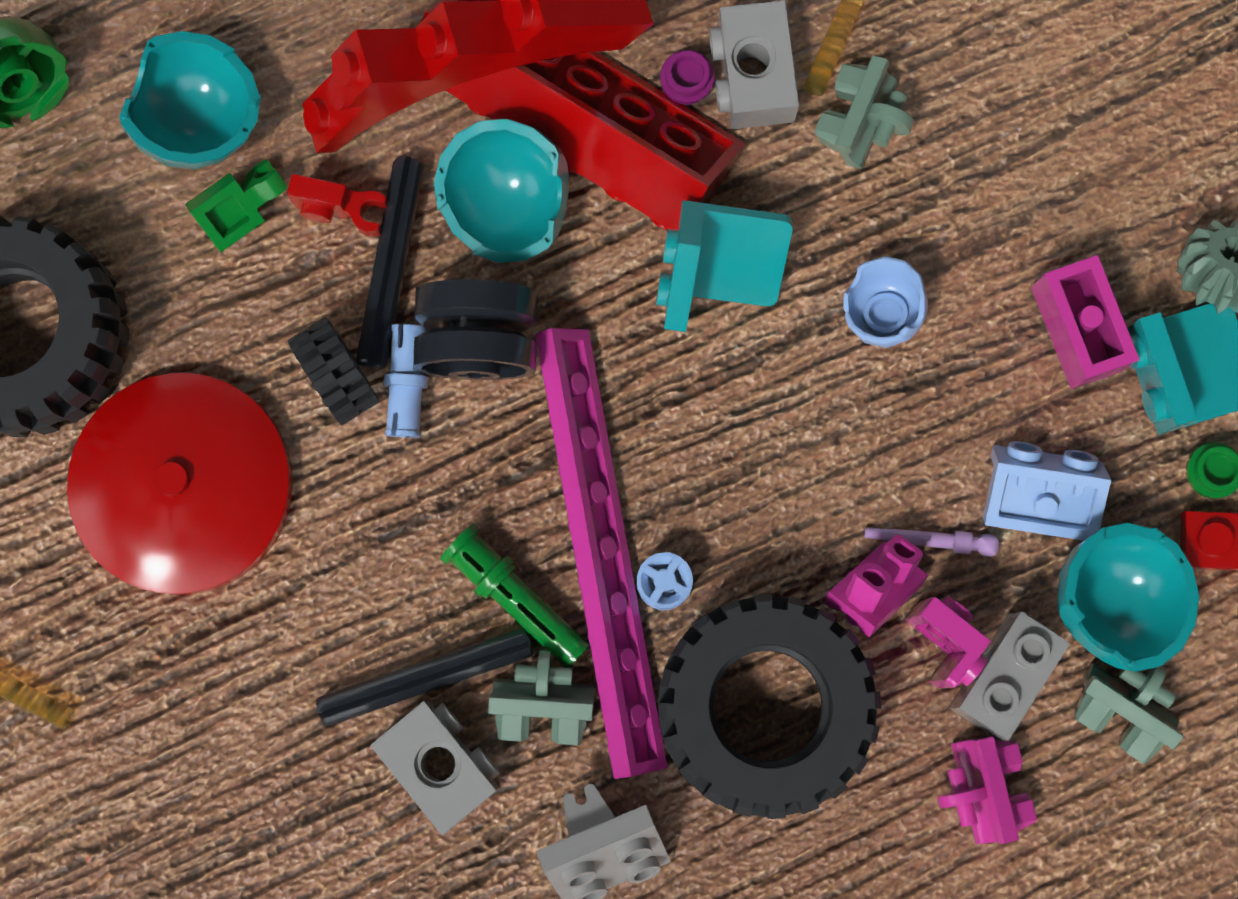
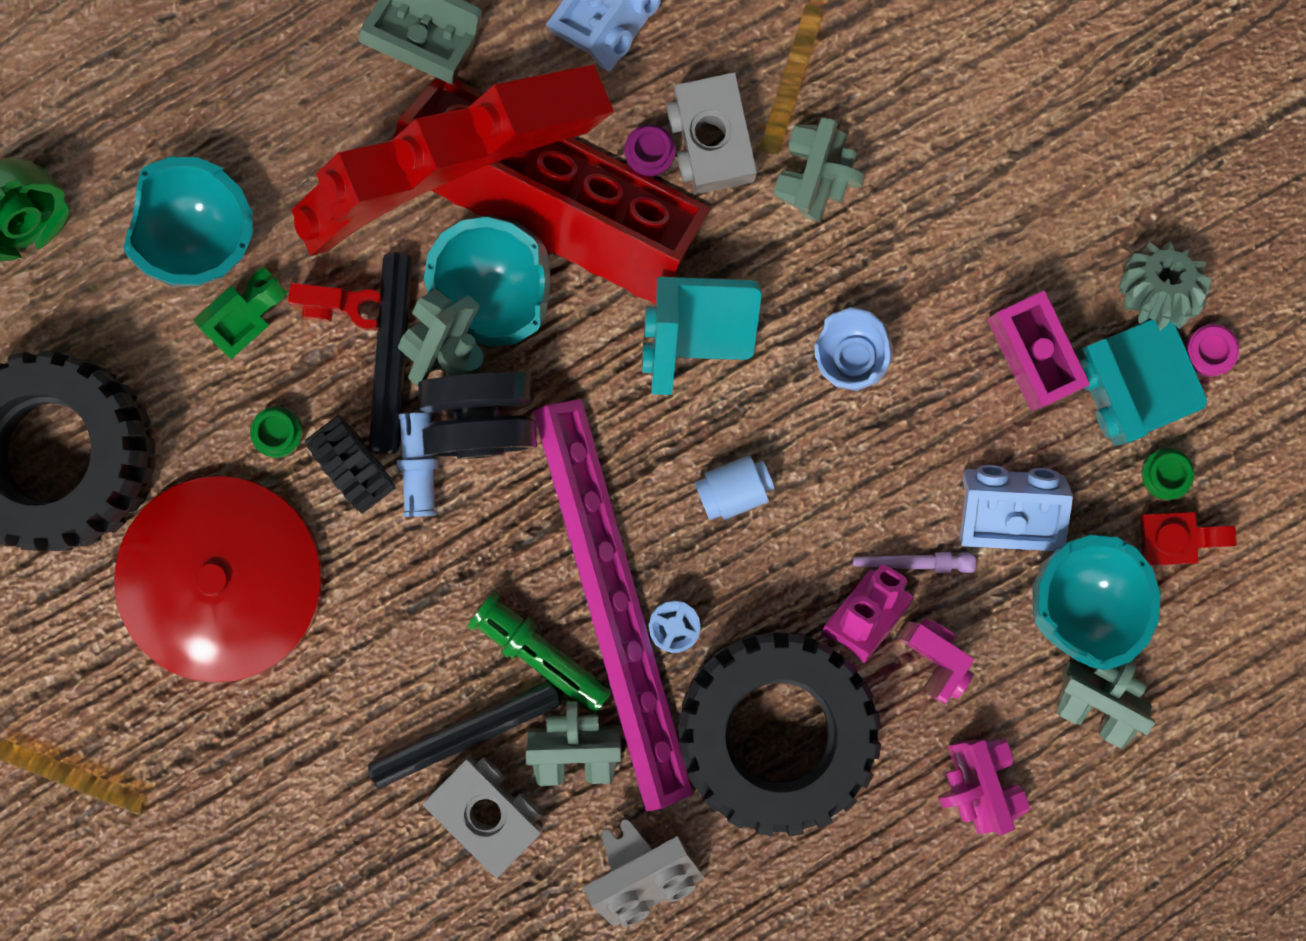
camera: 15 degrees left, 5 degrees up
(259, 333) = (276, 432): none -> green plate
(451, 247) = (445, 341): none -> sand green hips
(744, 439) = (734, 488): none -> light blue brick
(1016, 670) = (1001, 676): light grey brick -> none

